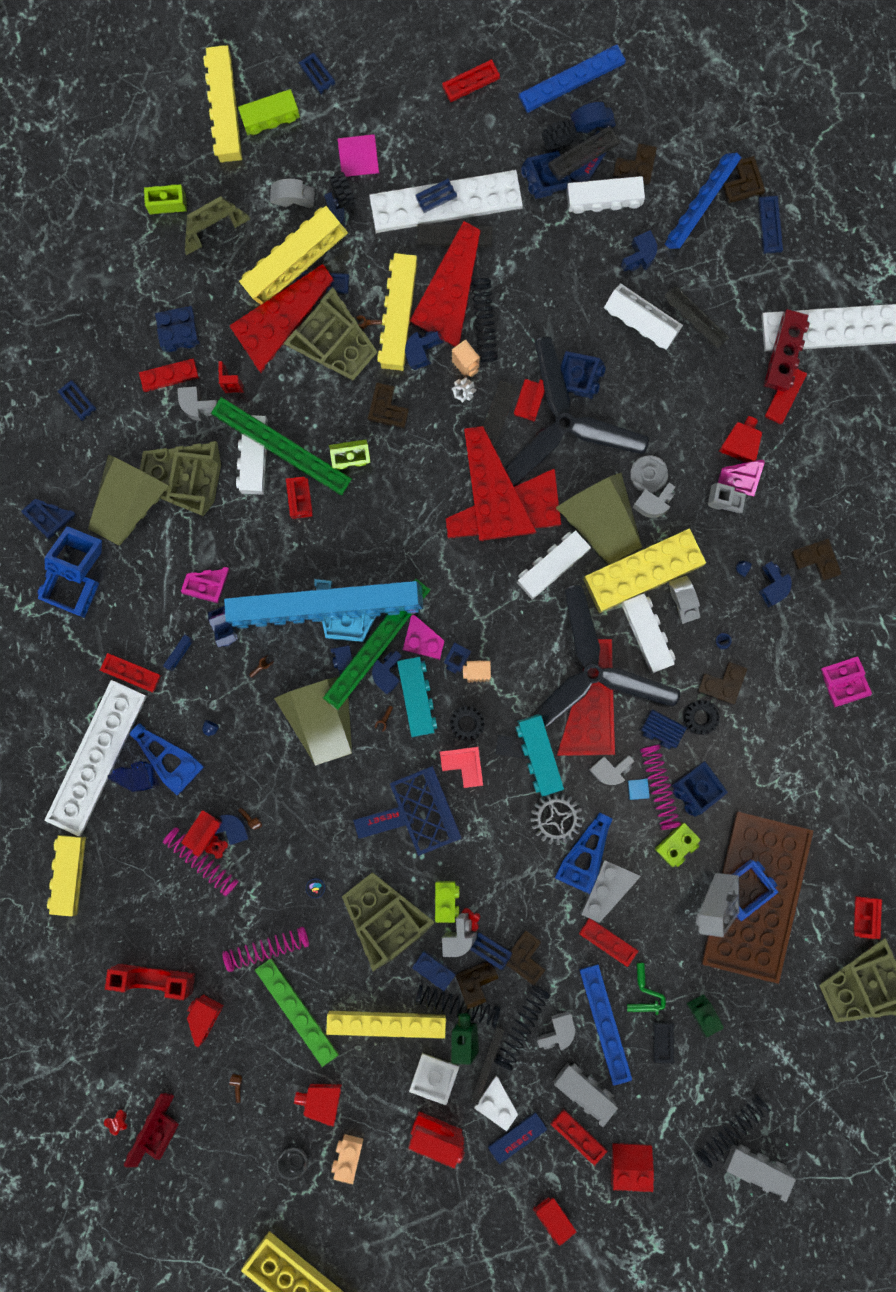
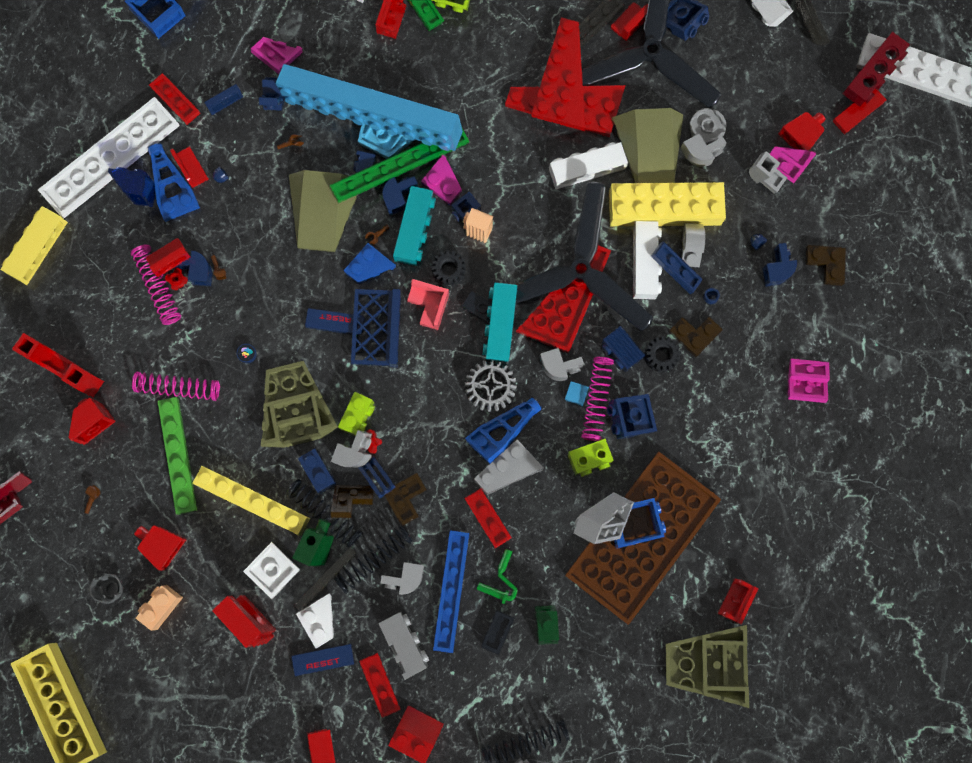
camera: 15 degrees right, 5 degrees down
(177, 732) = (190, 166): none -> red panel
(389, 752) = (368, 264): none -> blue wing
(680, 629) = (676, 267): none -> dark blue tile

